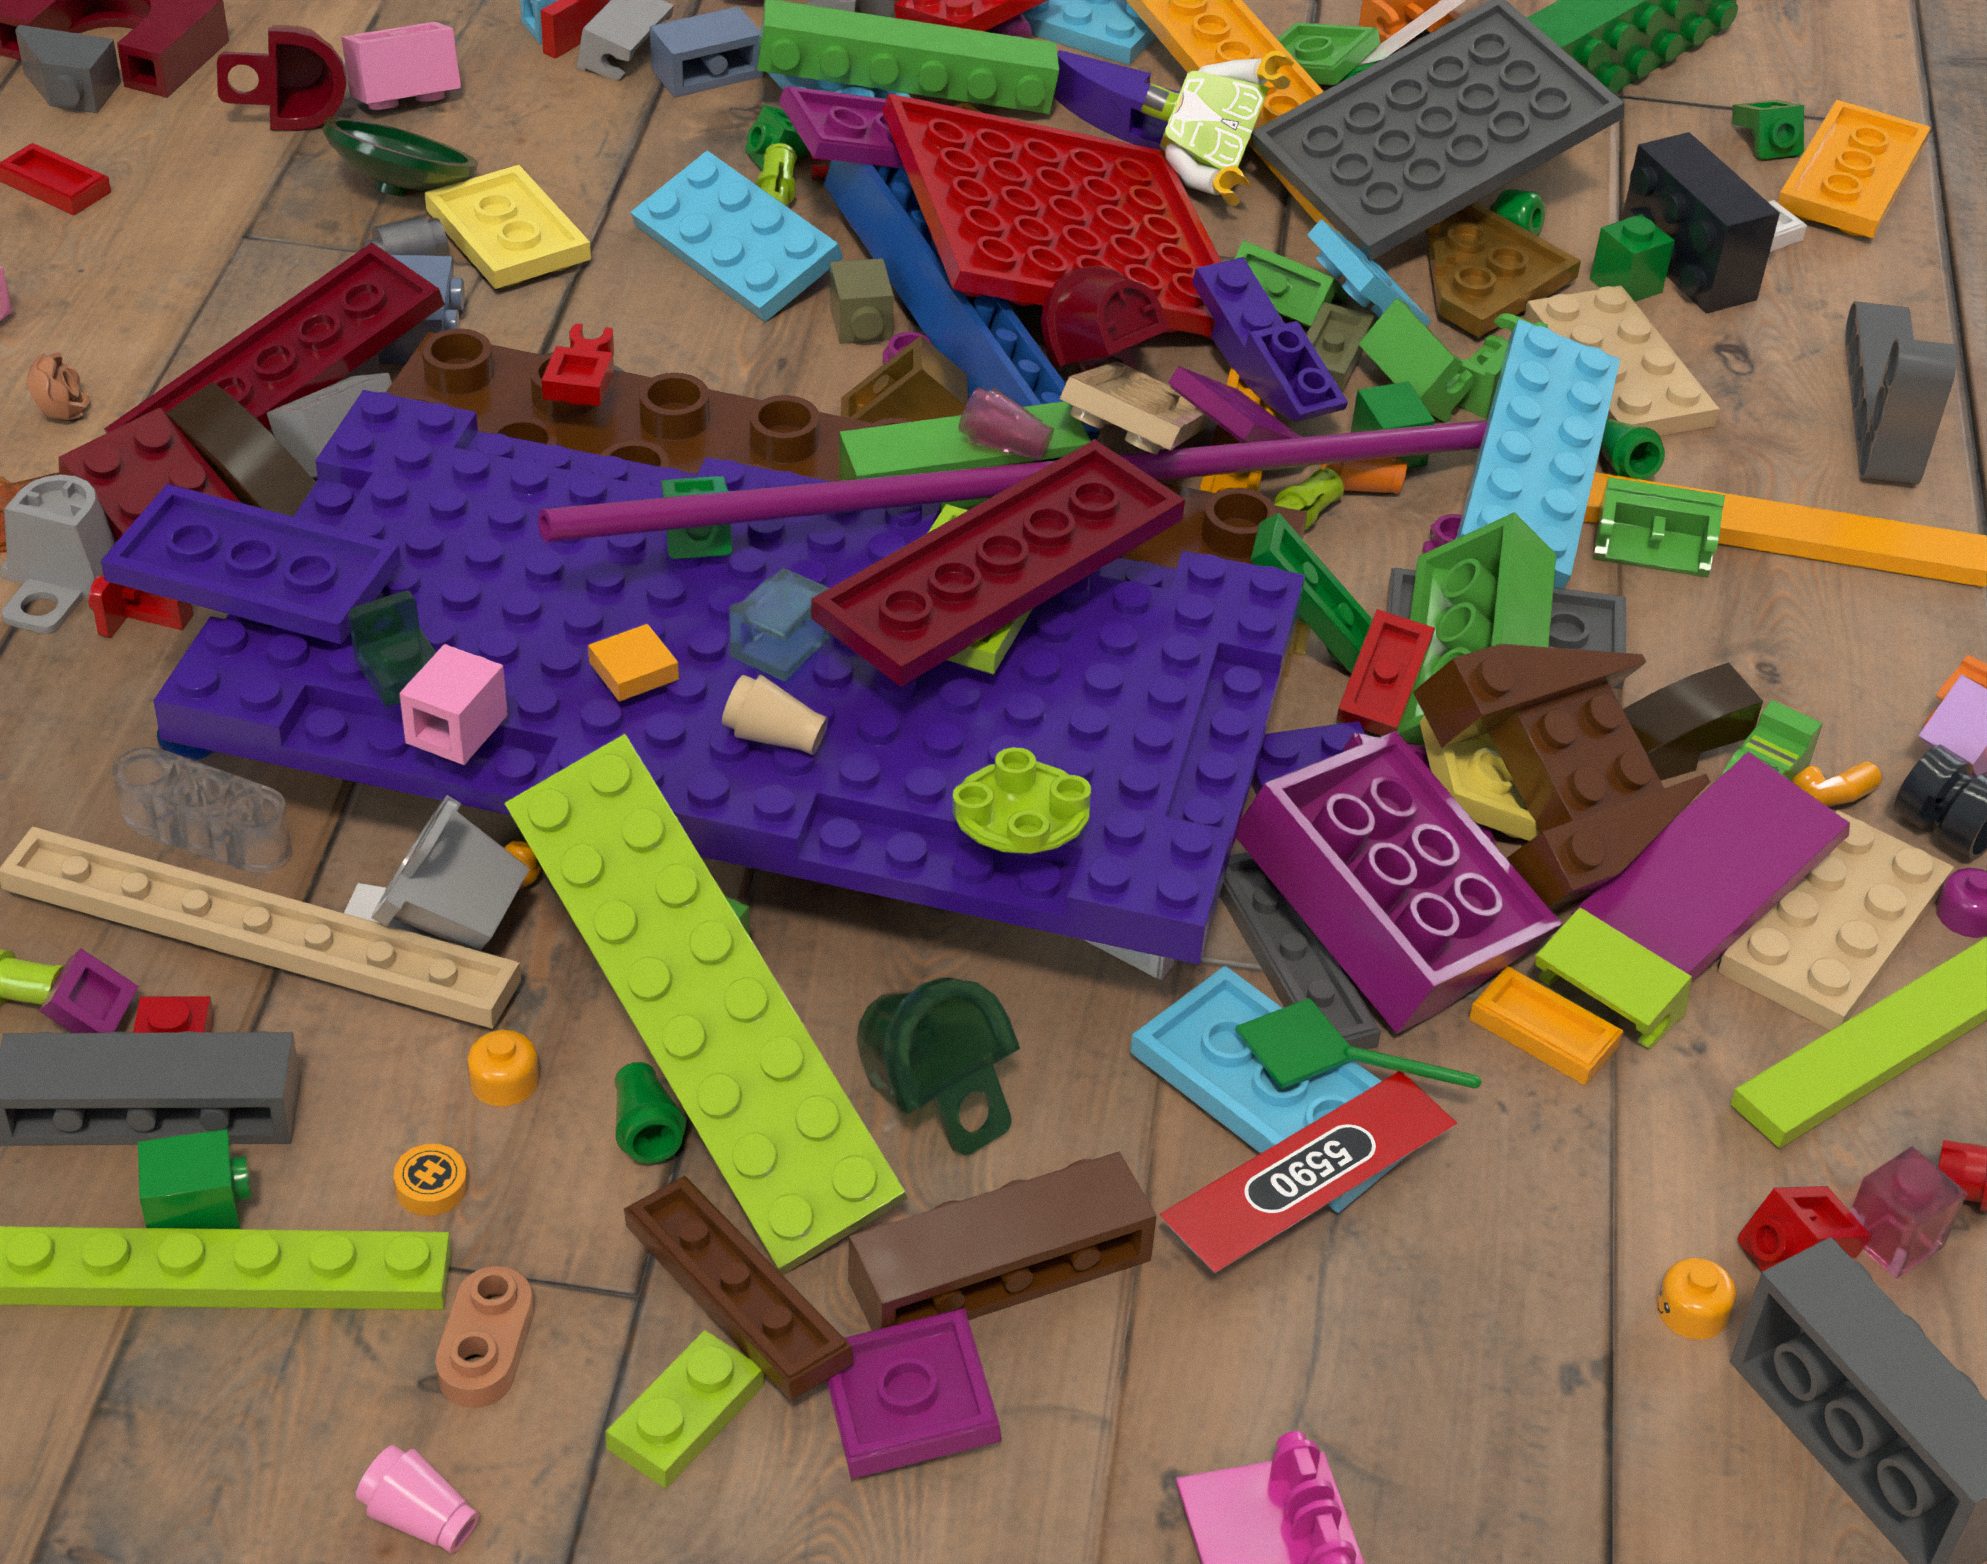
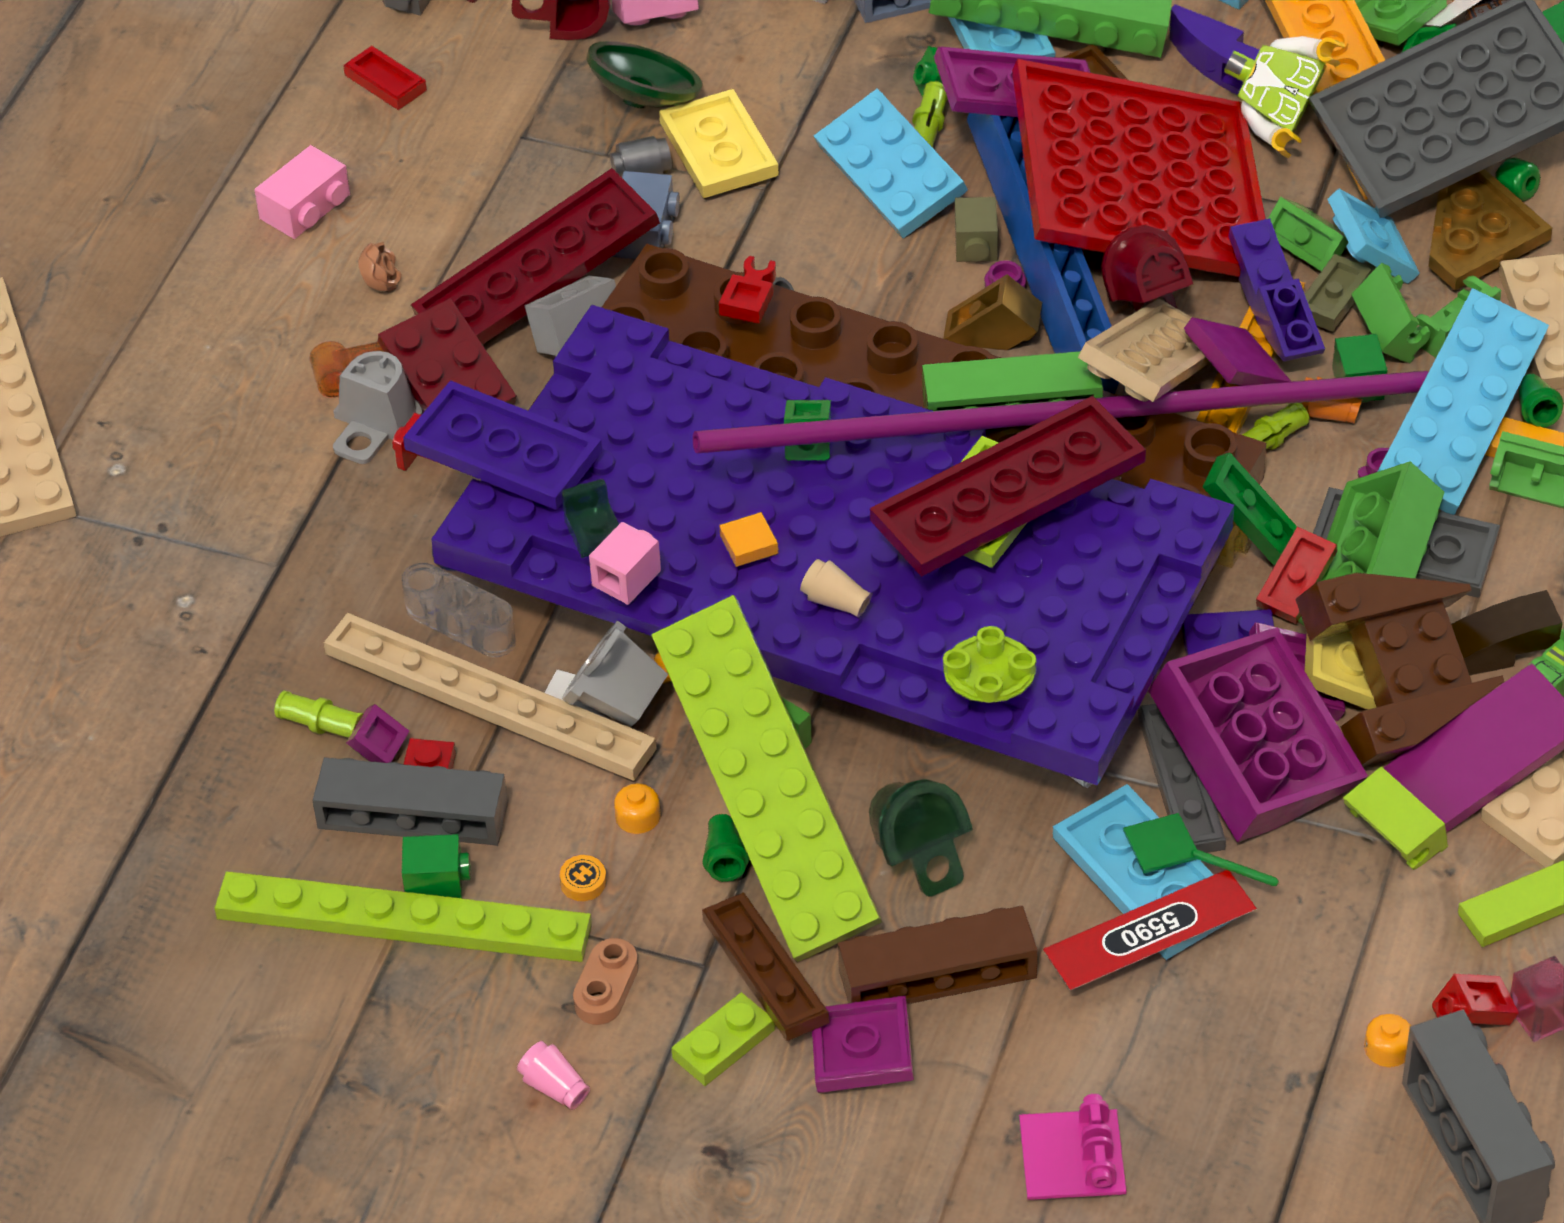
camera: 15 degrees right, 5 degrees up
(242, 451) = (507, 340): dark brown slope -> none
(776, 626) = (846, 521): clear light blue window -> none
(1004, 425) = (1038, 372): clear pink cone -> none
(1546, 1025) = (1344, 846): light orange tile -> none

